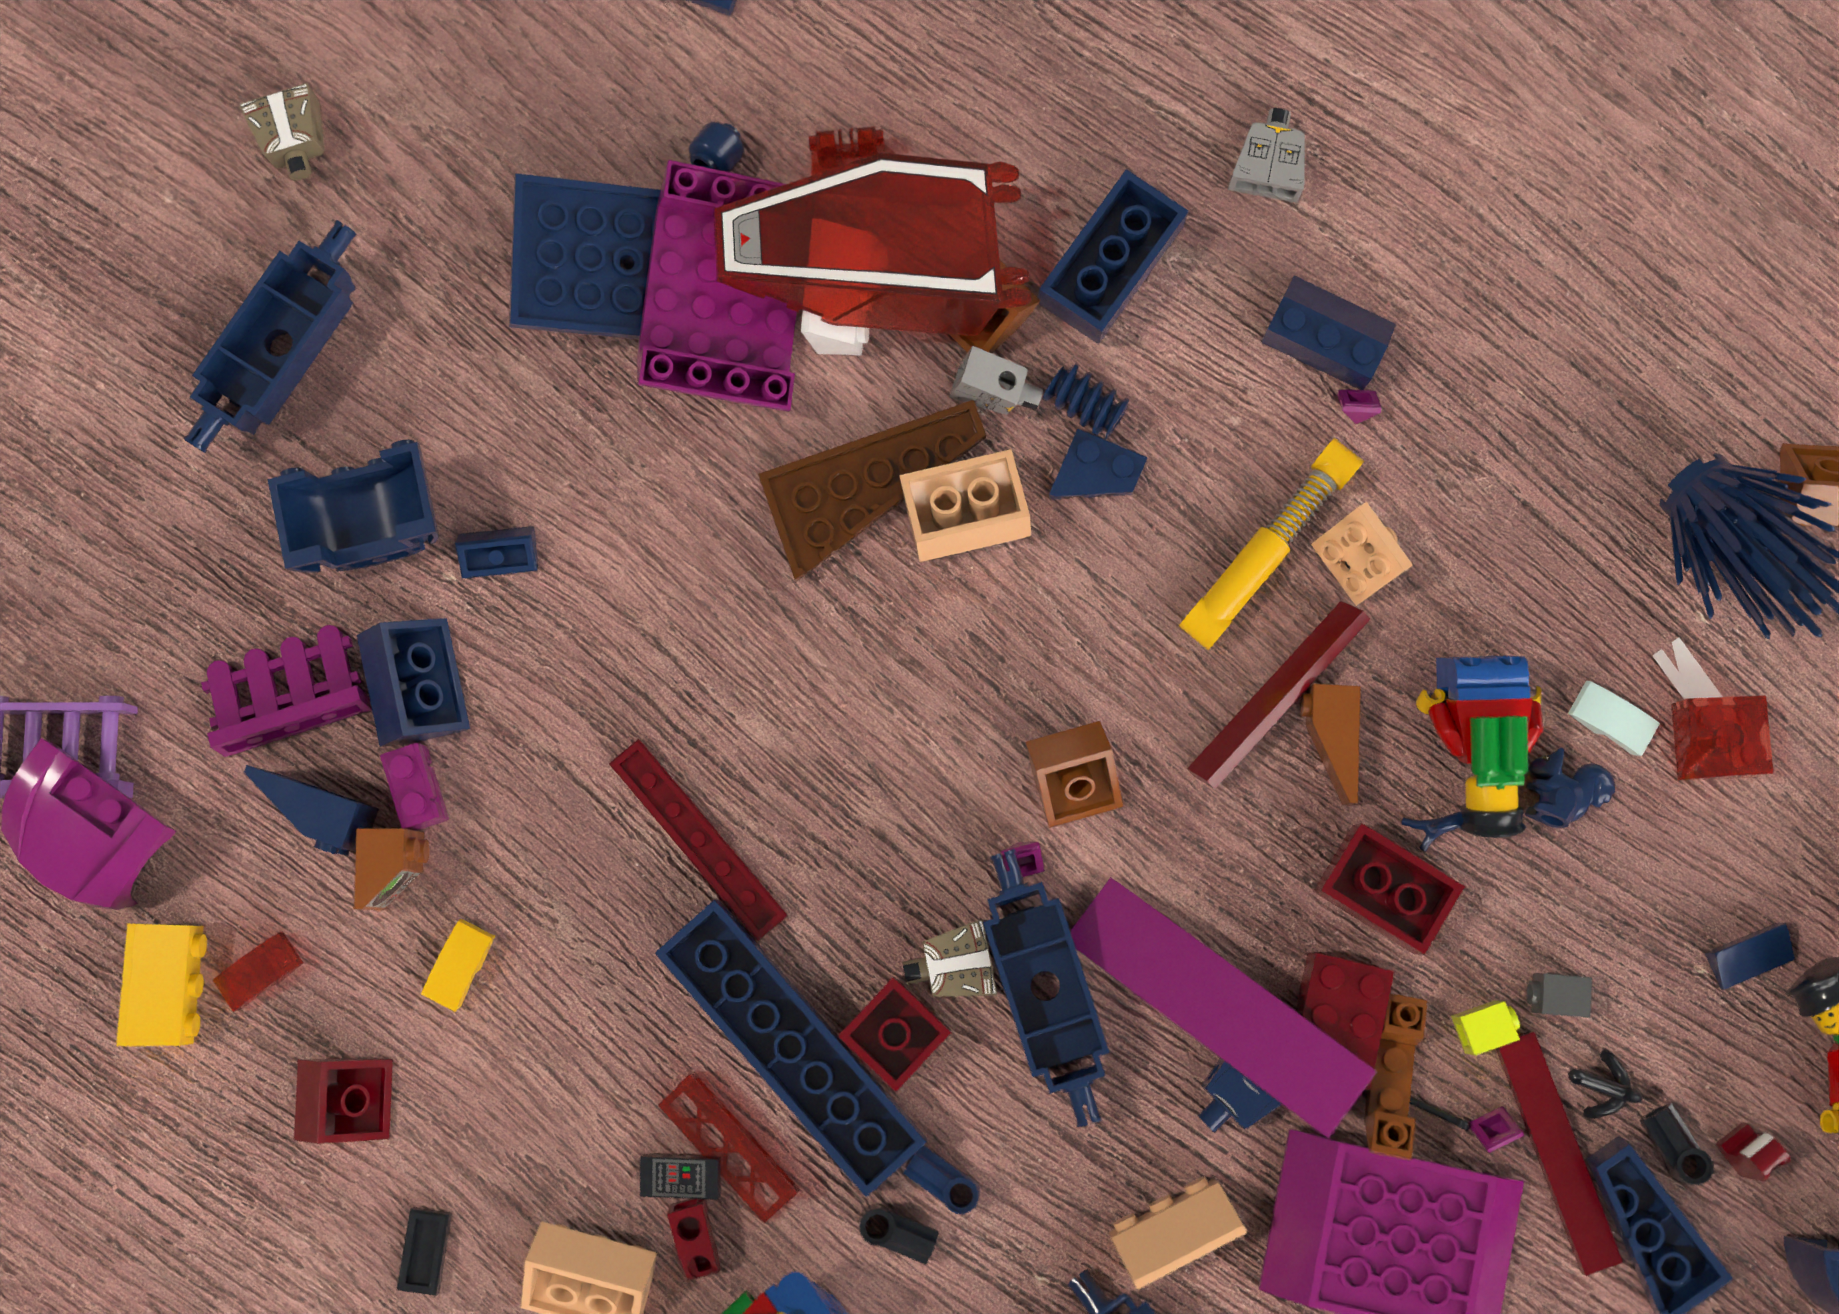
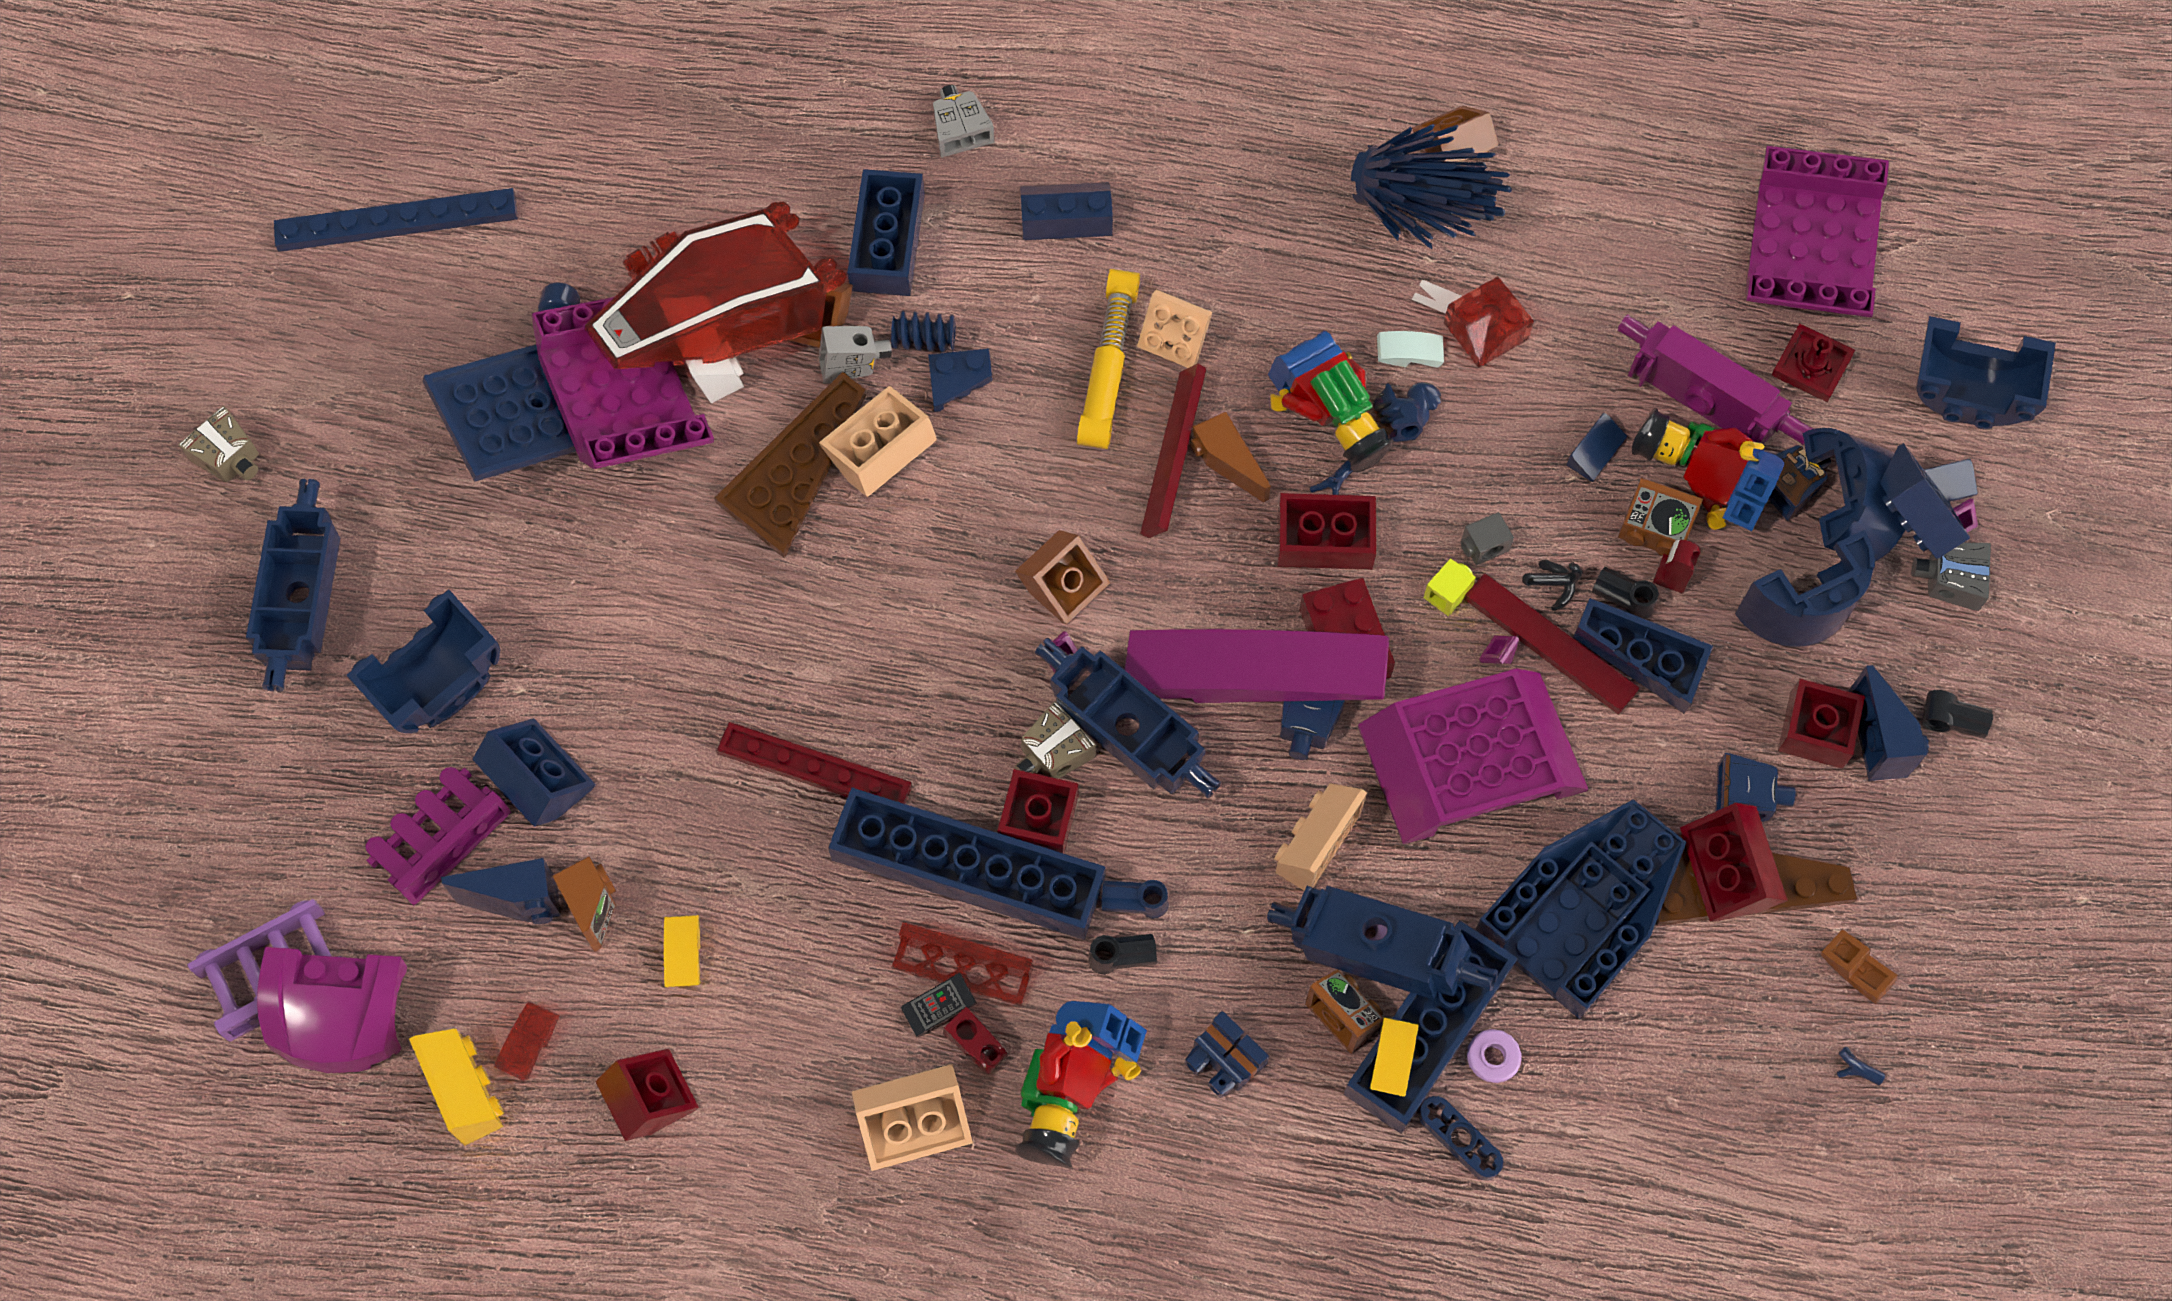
camera: 35 degrees left, 15 degrees down
(414, 787) = (575, 838): magenta brick -> none
(424, 1251) = (773, 1172): black tile -> none
(497, 552) = (547, 653): dark blue slope -> none
(1359, 404) = (1115, 243): magenta slope -> none
(1388, 1100) = (1411, 665): dark orange slope -> none
(1440, 1113) = (1421, 666): black hinge -> none
(1767, 1088) = (1658, 517): none -> slope

